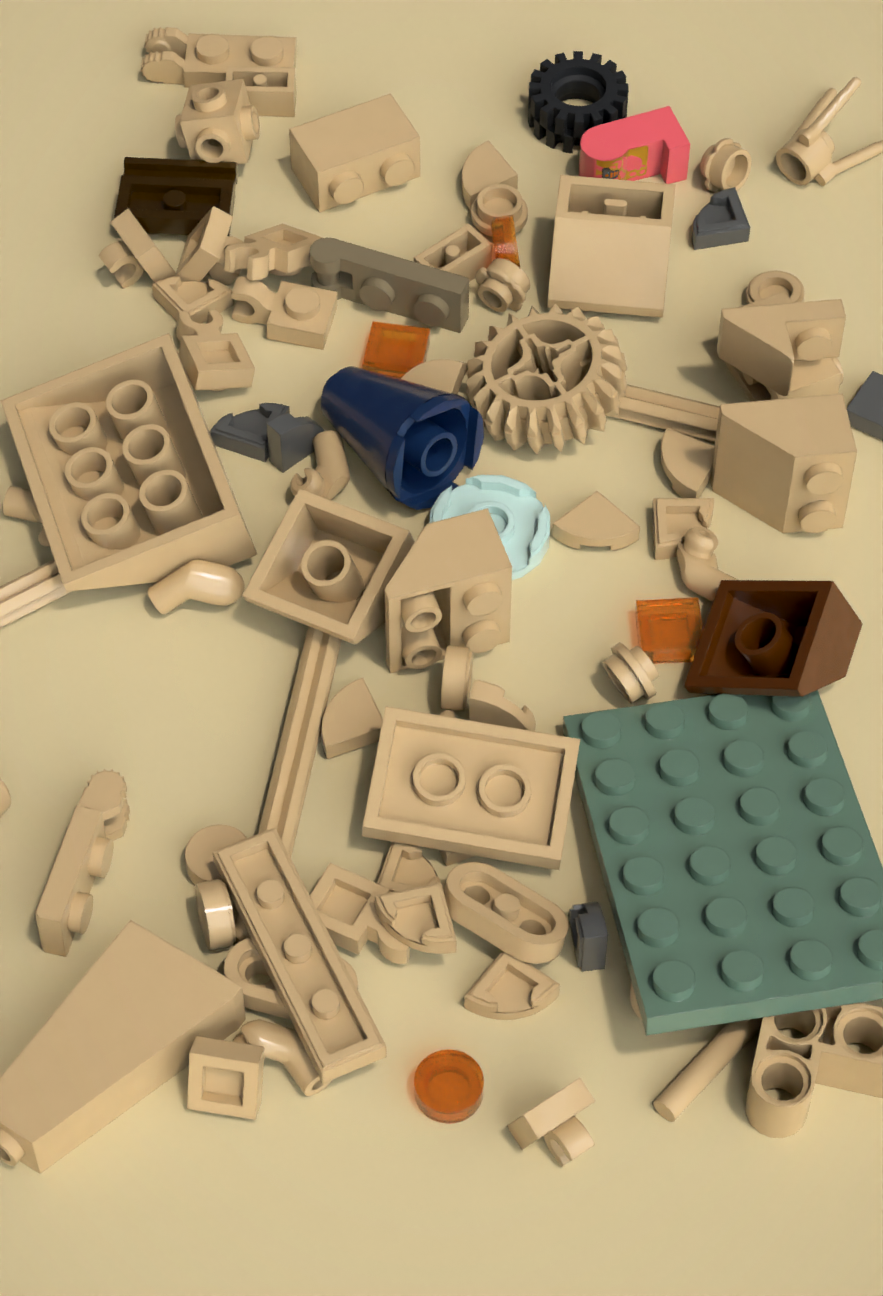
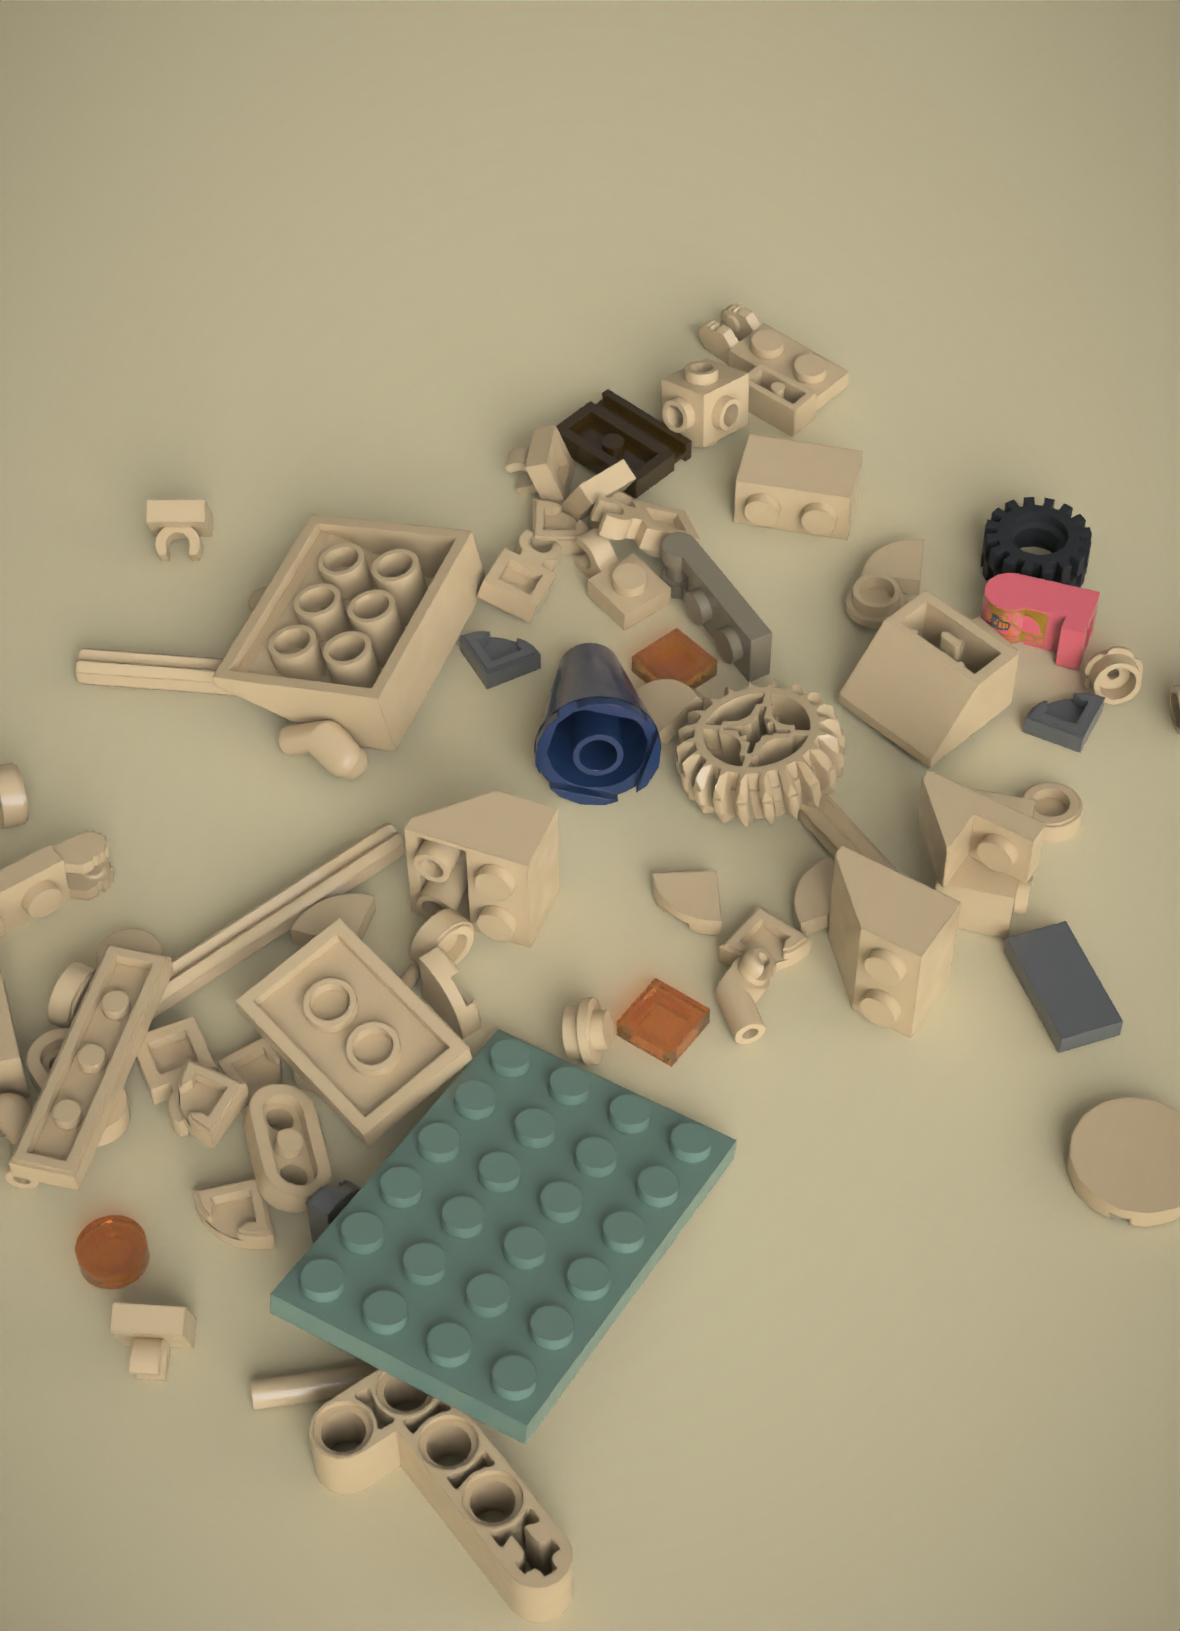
camera: 40 degrees right, 5 degrees down
(290, 439) = (516, 680): dark grey tile -> none
(329, 567) = (407, 778): tan slope -> none
(331, 470) = (515, 729): tan arm -> none
(459, 253) = (796, 618): tan piece -> none
(502, 285) = (812, 661): tan plate -> none
(505, 238) = (848, 629): clear orange tile -> none
(514, 510) = (608, 848): light aqua tile -> none
(774, 639) = (727, 1084): reddish brown slope -> none

